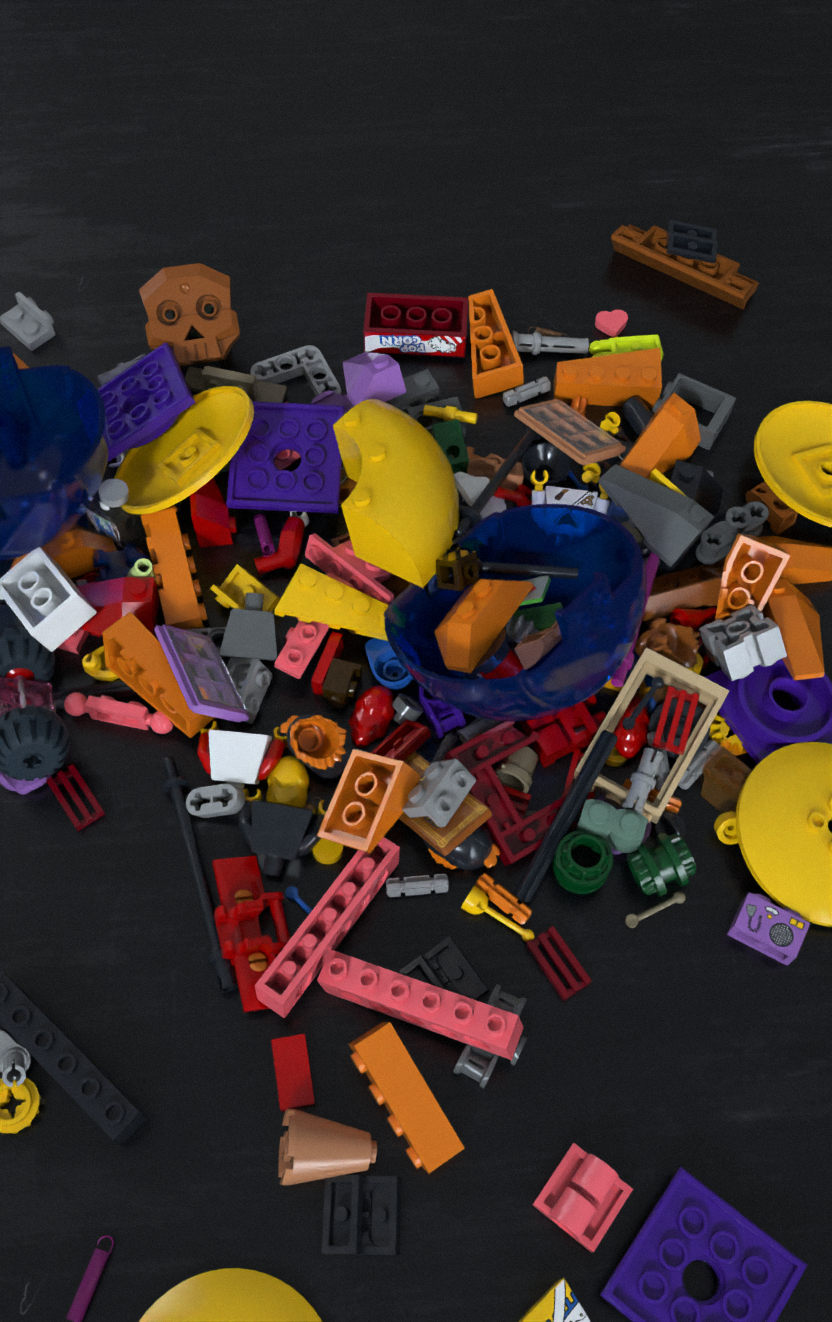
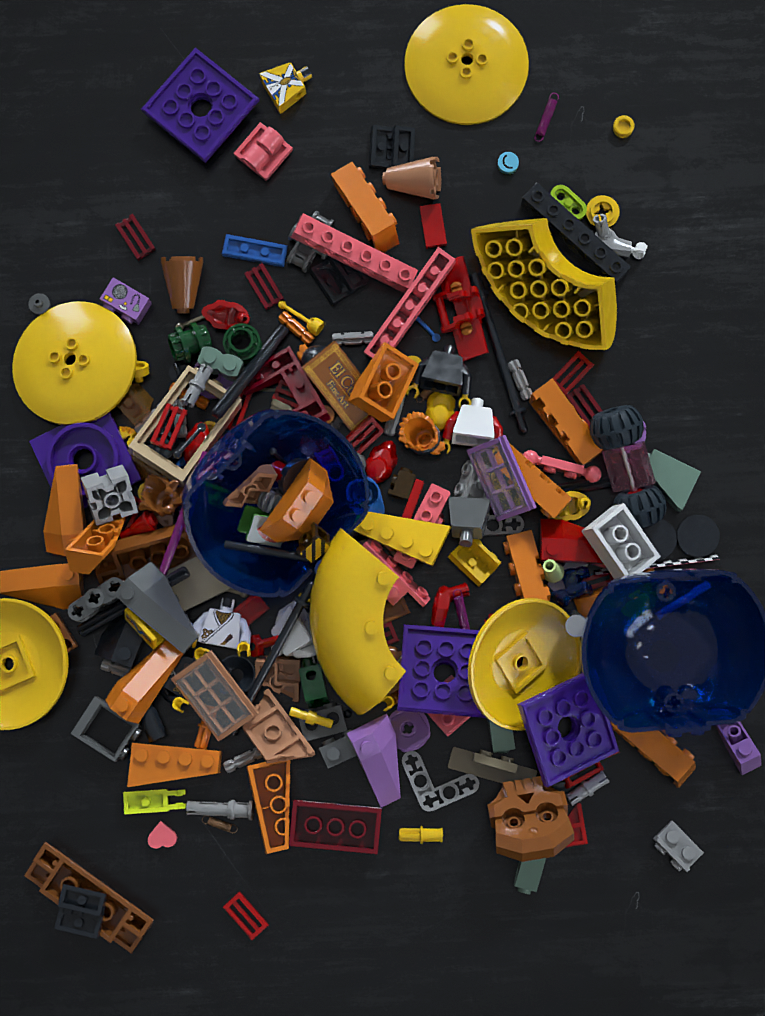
camera: 175 degrees left, 20 degrees up
(67, 1118) = (570, 201): none -> lime plate
(99, 853) = (577, 367): none -> red tile
(108, 767) = (564, 422): none -> orange wedge
(116, 965) = (545, 286): none -> yellow brick
(139, 339) = (577, 822): none -> red tile
(162, 1191) = (508, 163): none -> medium azure tile
(168, 832) = (520, 379): none -> light grey axle
(215, 794) = (488, 392): light grey beam -> none
(318, 327) = (421, 834): none -> yellow axle
(440, 792) = (335, 384): light grey bracket -> none
(495, 400) = (275, 733): none -> nougat wing
(508, 262) = (239, 895): none -> red tile
(578, 1021) = (255, 250): none -> blue tile
(612, 910) = (225, 314): none -> red arm
(687, 963) = (182, 280): none -> dark orange cone
(781, 1030) = (126, 222): none -> dark red tile

